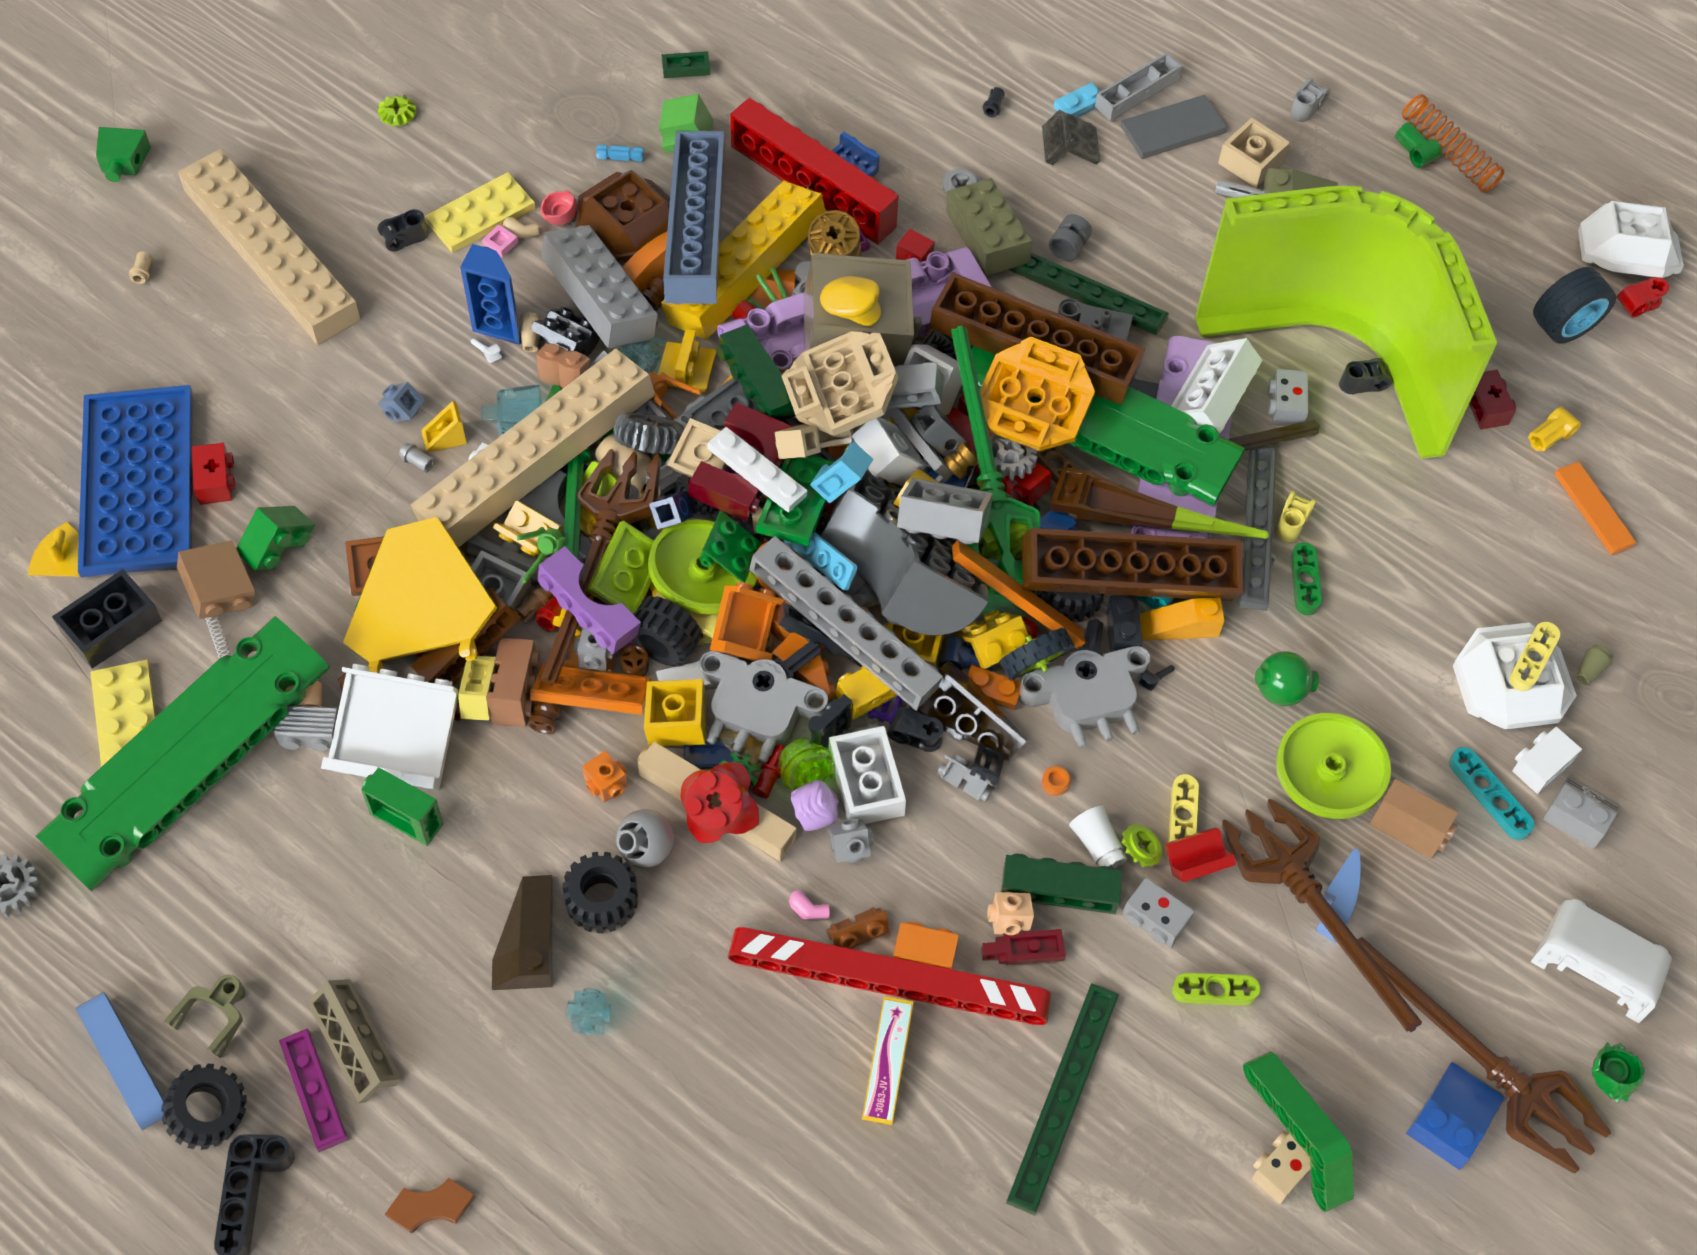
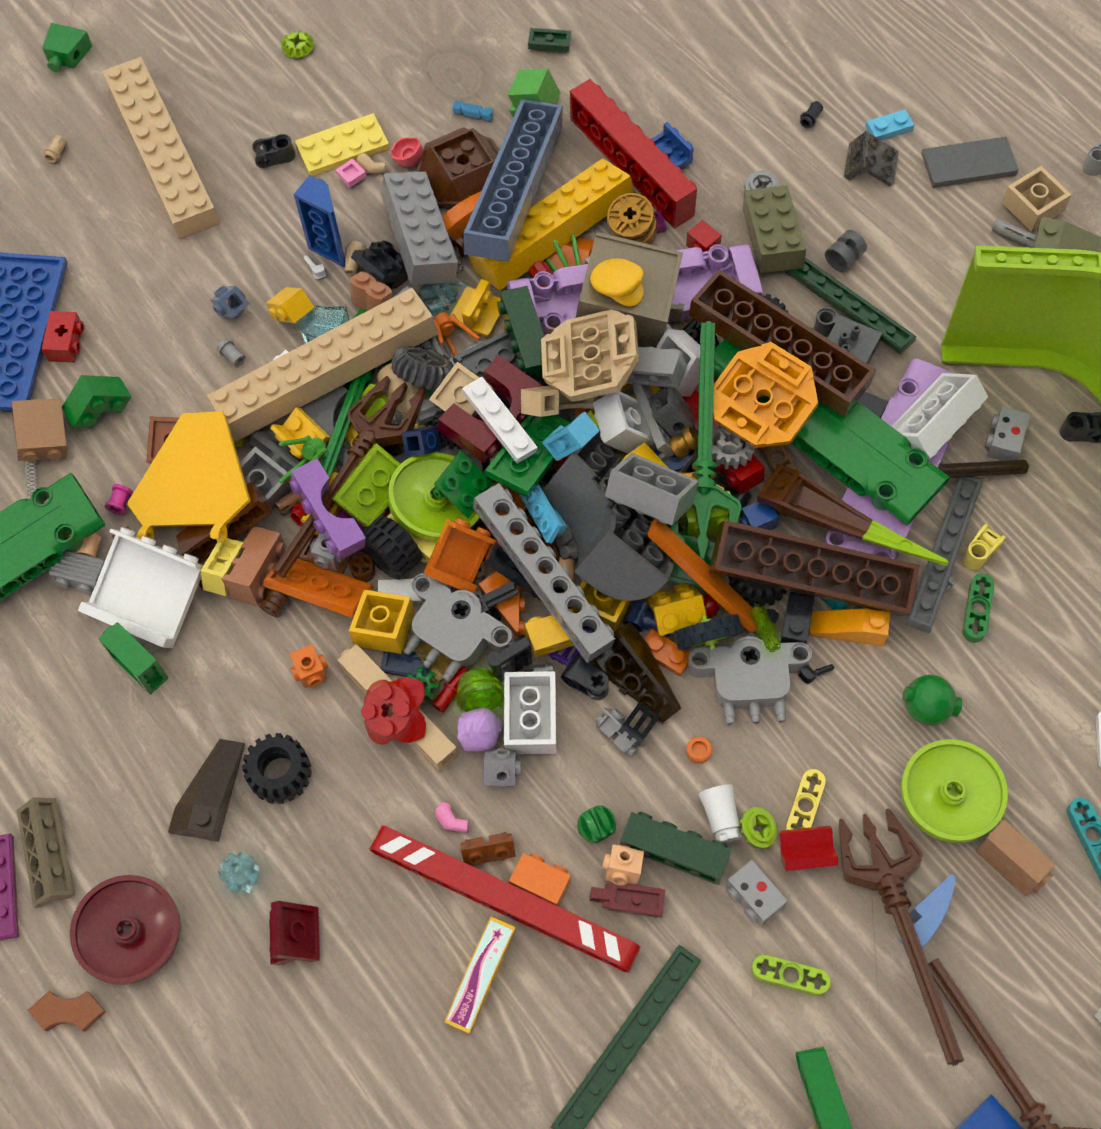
camera: 20 degrees right, 5 degrees up
(331, 640) = (118, 499): none -> dark pink bush
(444, 430) = (260, 332): yellow slope -> none
(475, 392) = (289, 305): none -> yellow brick
(476, 1100) = (125, 930): none -> dark red dish
(645, 838) = (324, 729): light grey brick -> none
(667, 1063) = (293, 933): none -> dark red bracket
(970, 877) = (596, 824): none -> green piece
(1095, 638) = (765, 628): none -> clear neon green axle
(1138, 86) = (946, 119): light grey piece -> none

